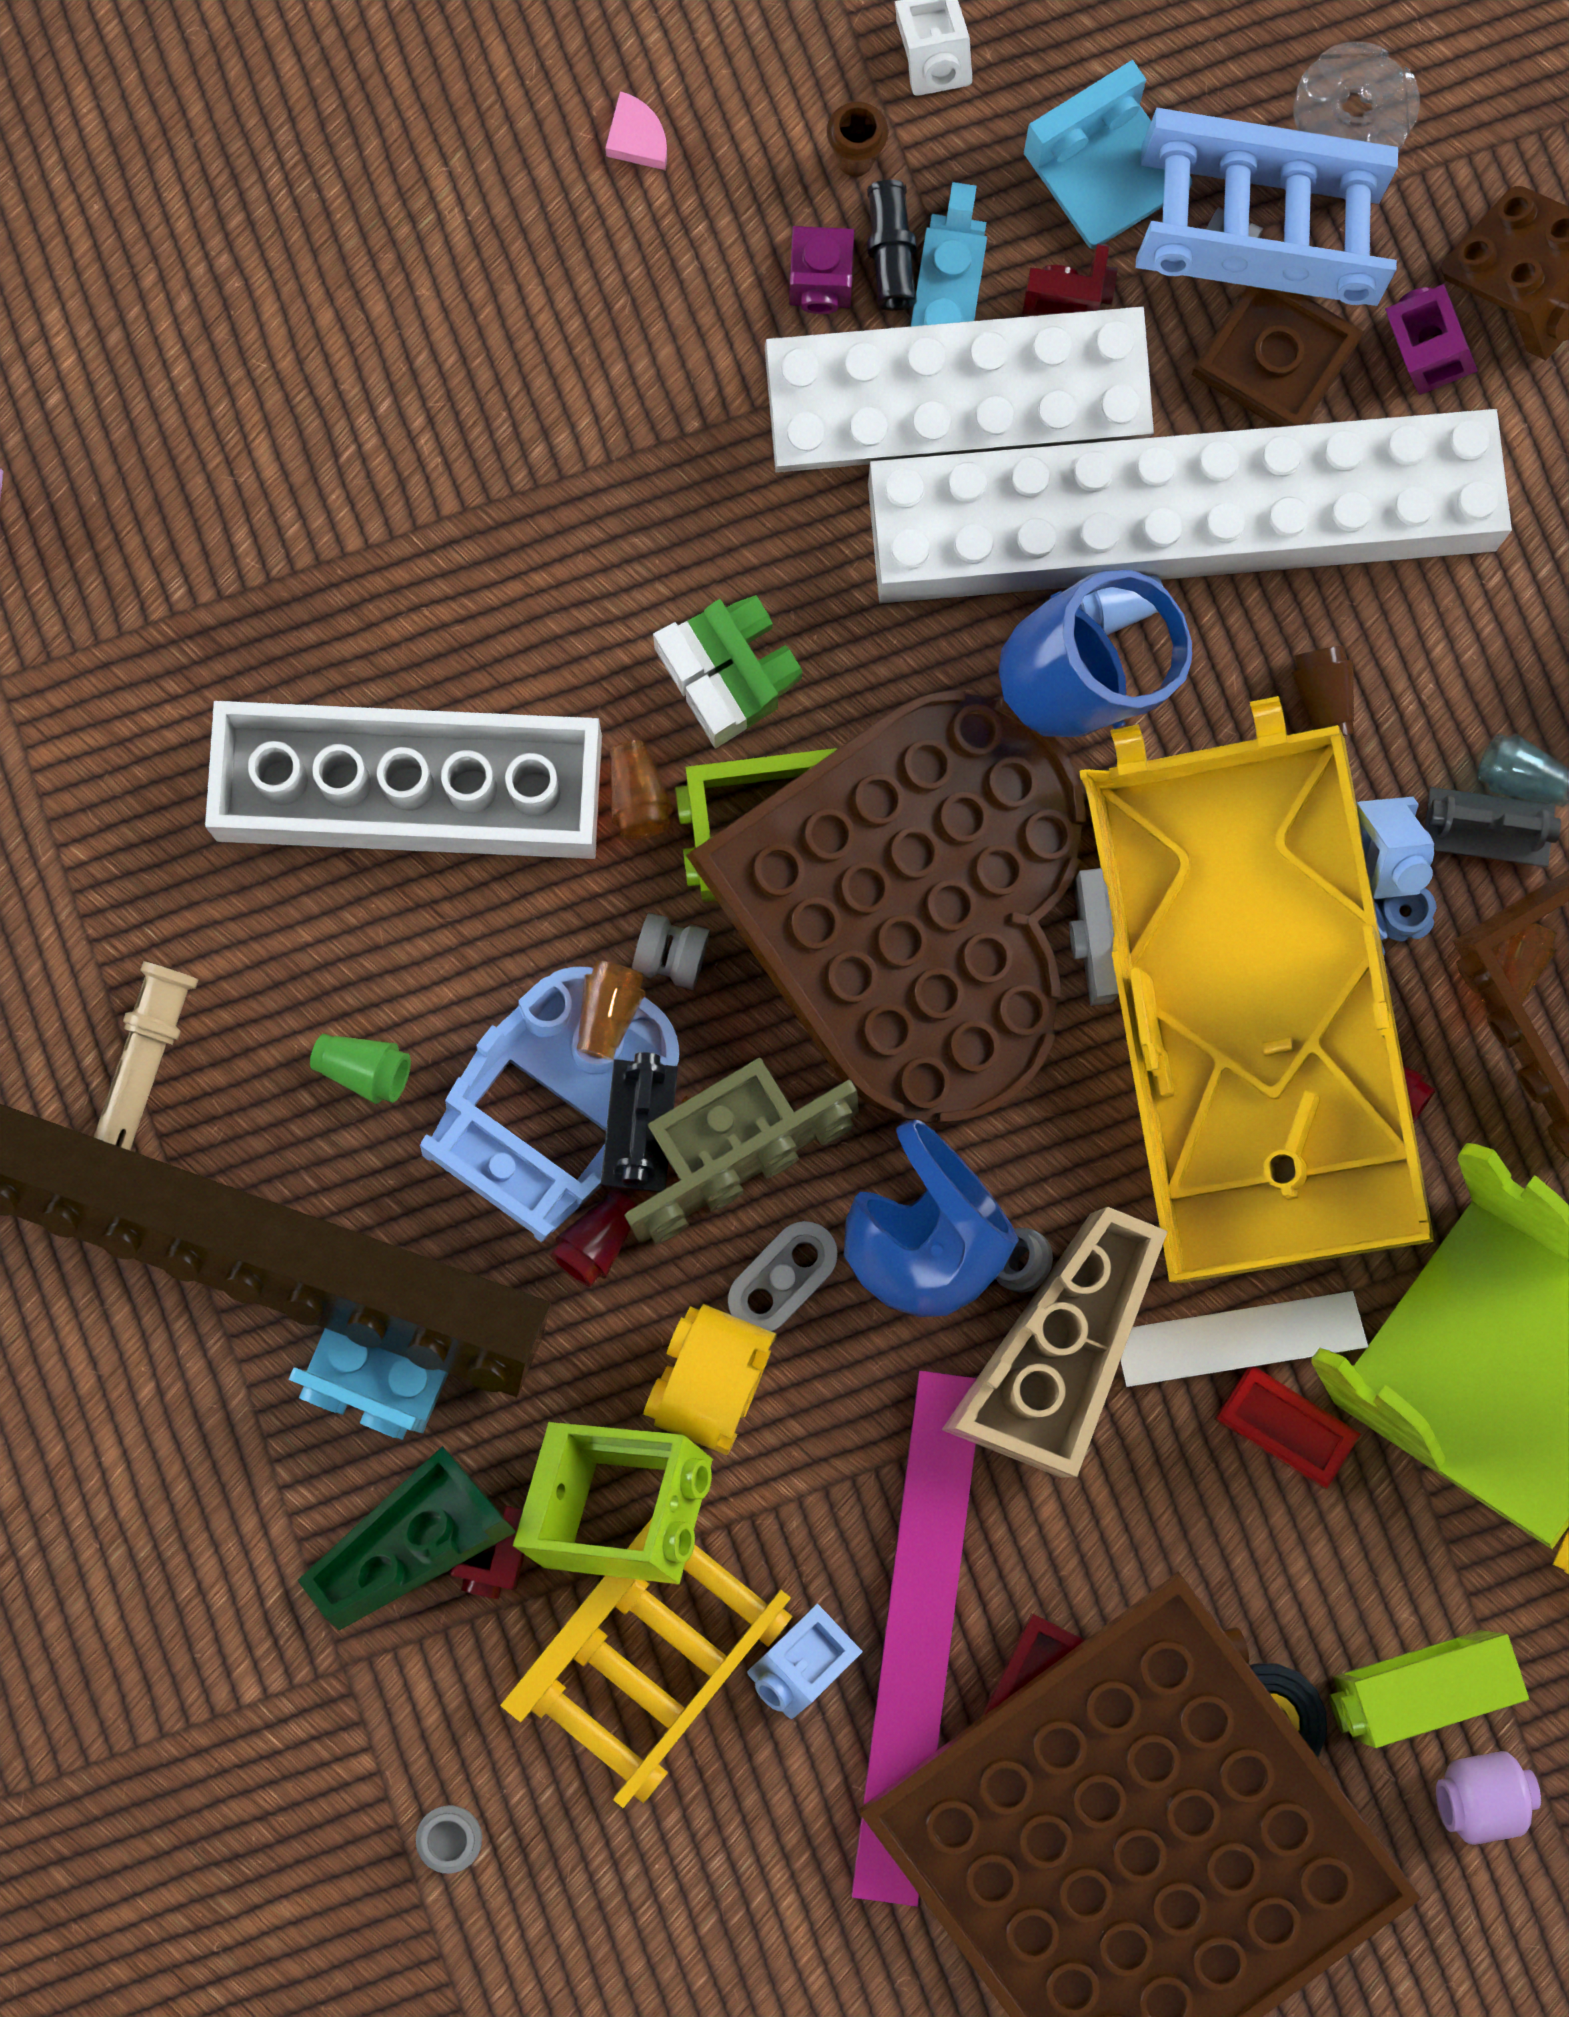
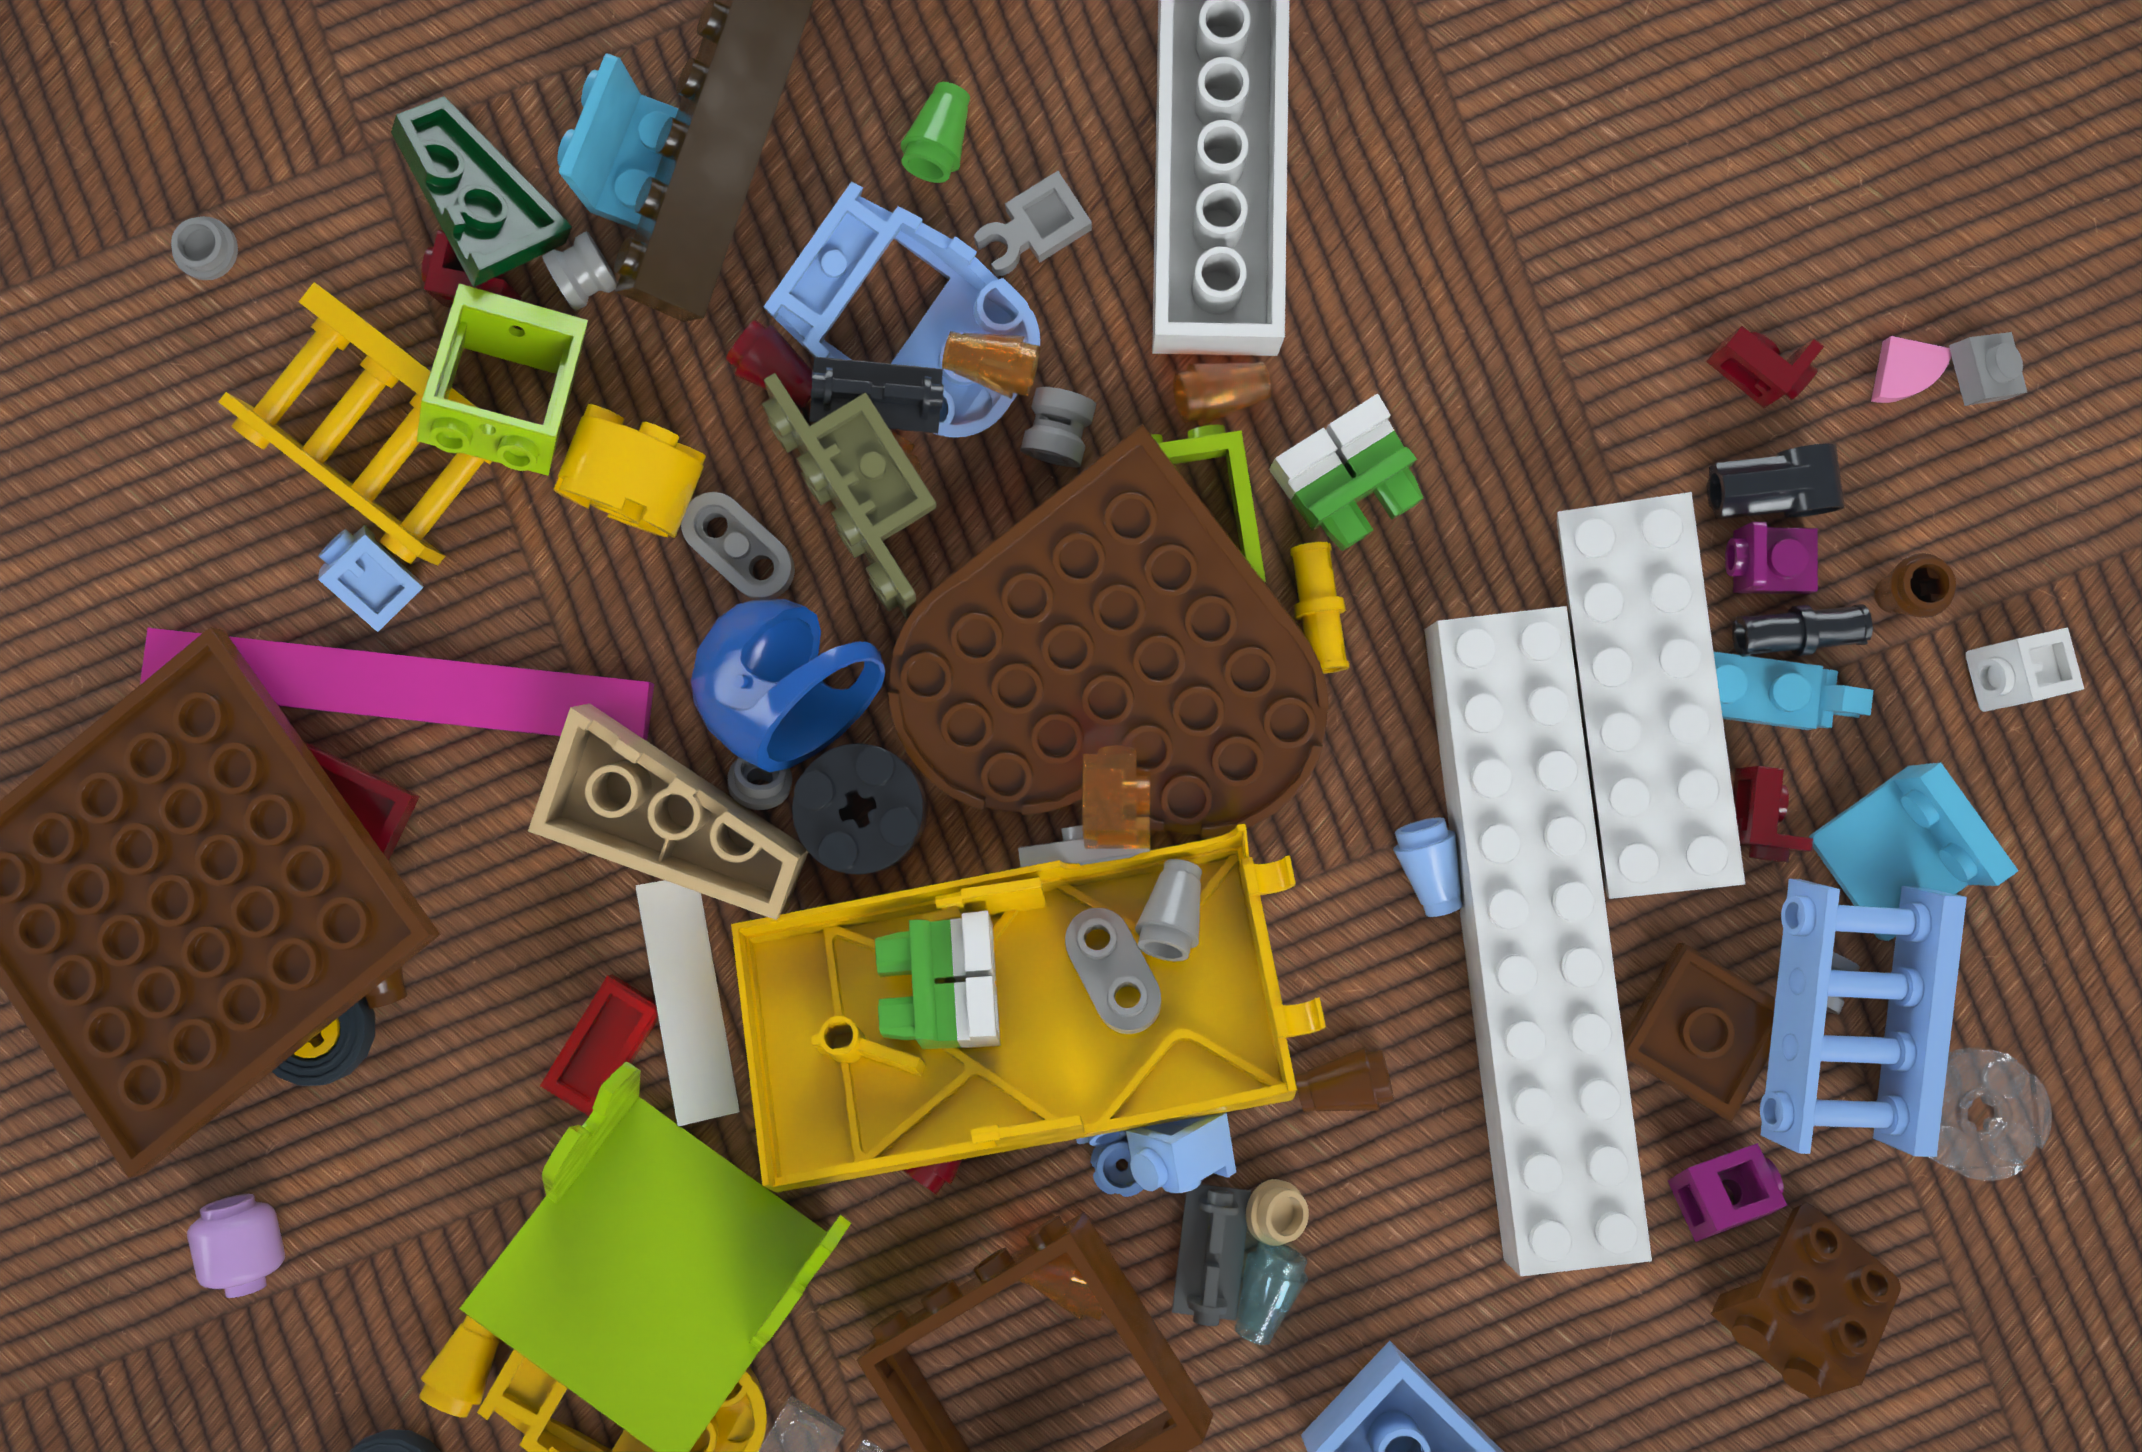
camera: 95 degrees right, 5 degrees up
(456, 964) = (1042, 220): none -> light grey plate
(492, 1434) = (580, 271): none -> light grey wheel
(631, 276) = (1757, 369): none -> dark red bracket
(640, 60) = (1988, 368): none -> light grey plate
(748, 247) = (1794, 482): none -> black piece
(855, 700) = (1319, 604): none -> yellow pin
(1053, 896) = (1114, 799): none -> clear orange brick
(1066, 672) = (1351, 812): blue piece -> none
(1070, 1120) = (827, 793): none -> black brick
(1162, 847) = (1172, 913): none -> light grey cone
(1203, 1073) = (951, 983): none -> hips
(1219, 910) = (1111, 969): none -> light grey plate
(1428, 1688) = (331, 1184): lime window -> none
(1452, 761) = (1276, 1213): none -> tan plate

